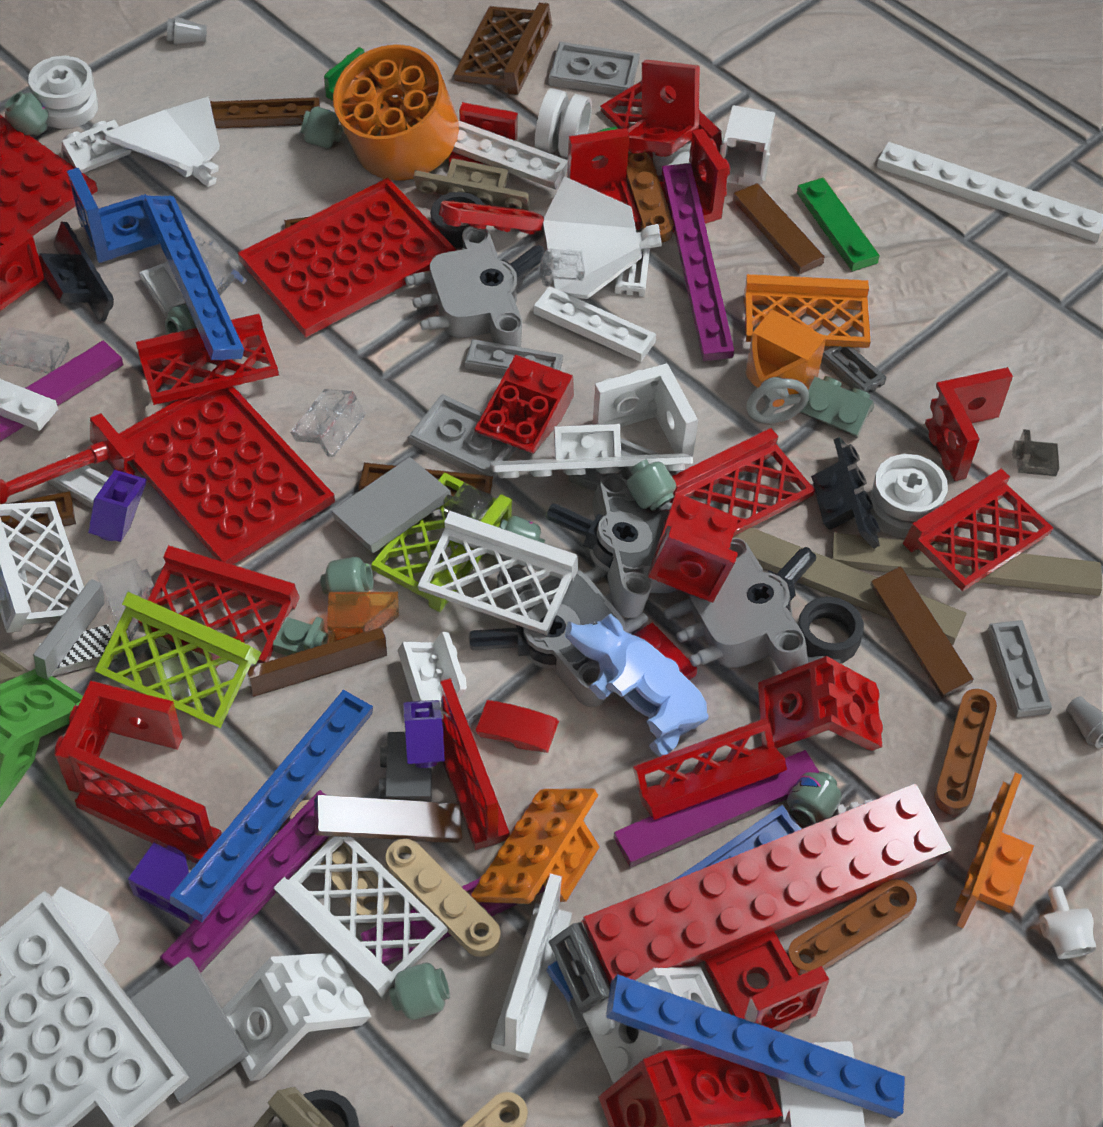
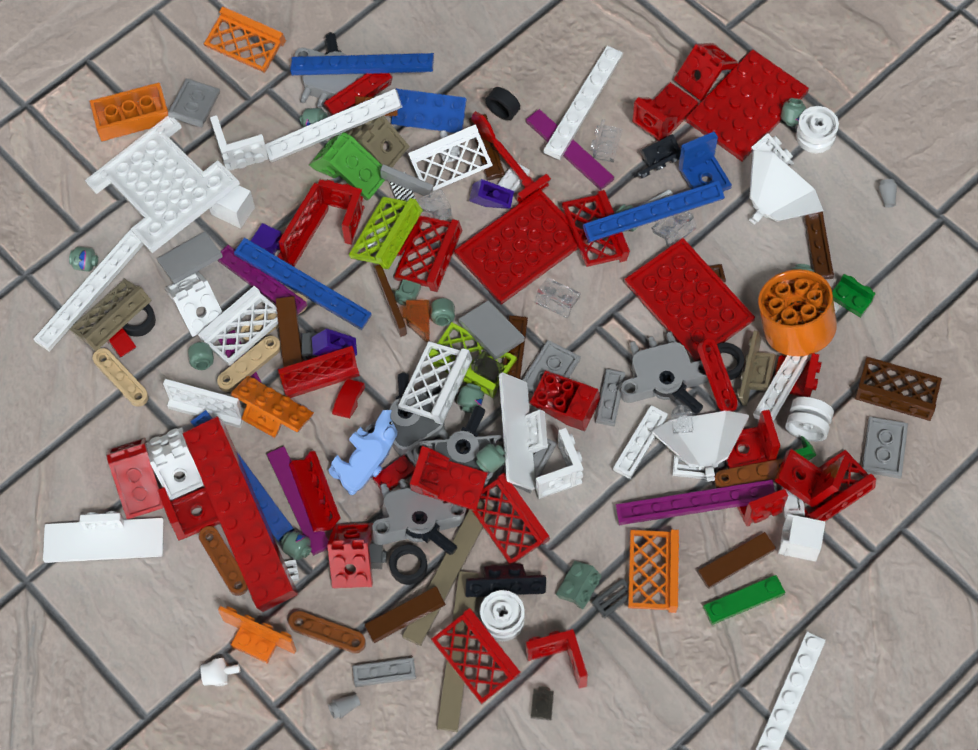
camera: 95 degrees right, 10 degrees up
(430, 663) = (382, 354): white bracket -> none
(584, 964) = (198, 420): dark grey tile -> none
(755, 1046) = (149, 499): blue plate -> none
(782, 366) = (603, 545): orange piece -> none

